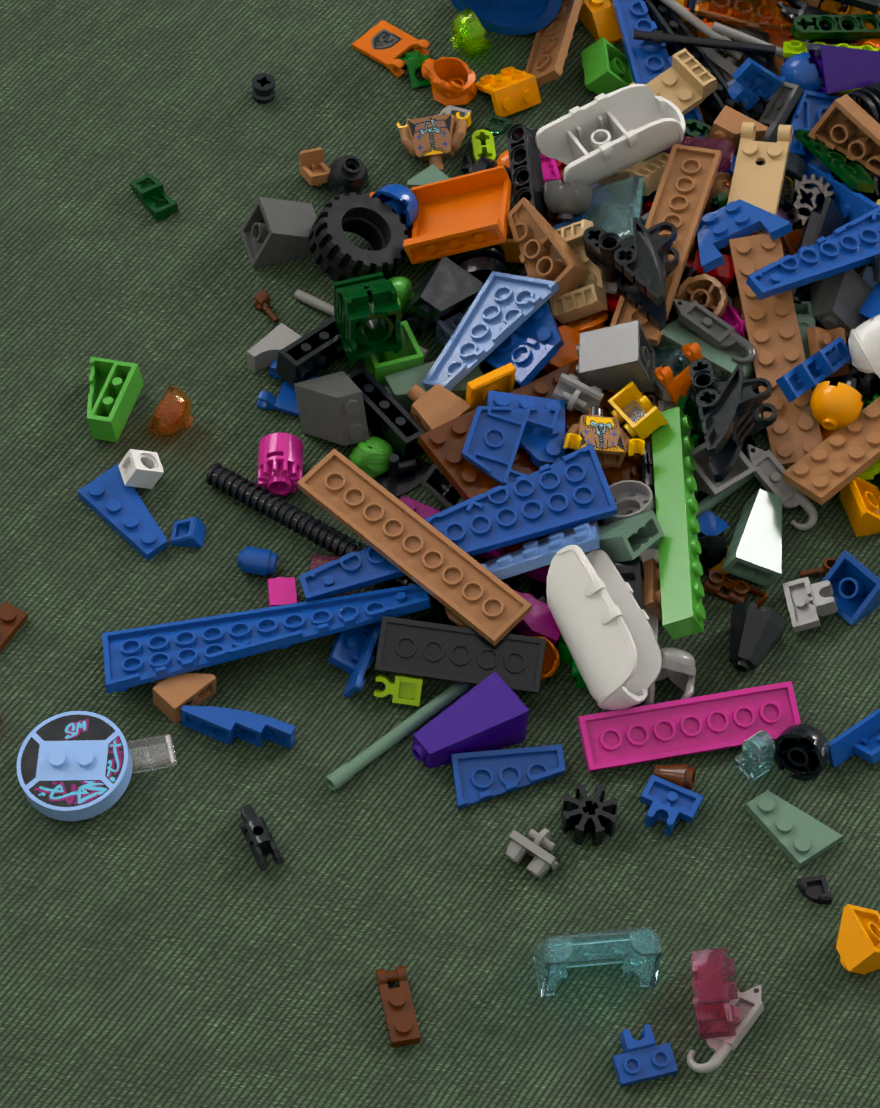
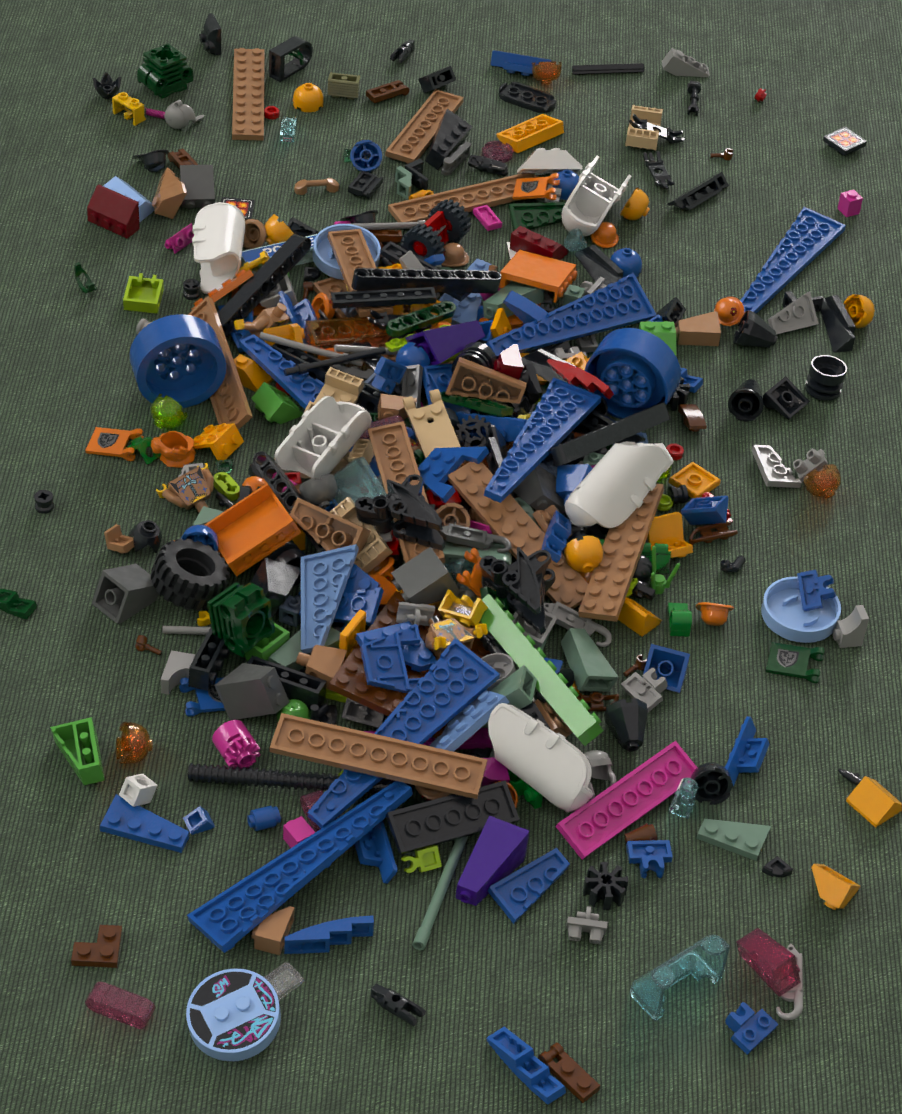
camera: 30 degrees left, 10 degrees down
(354, 974) = (525, 1065): none -> blue slope

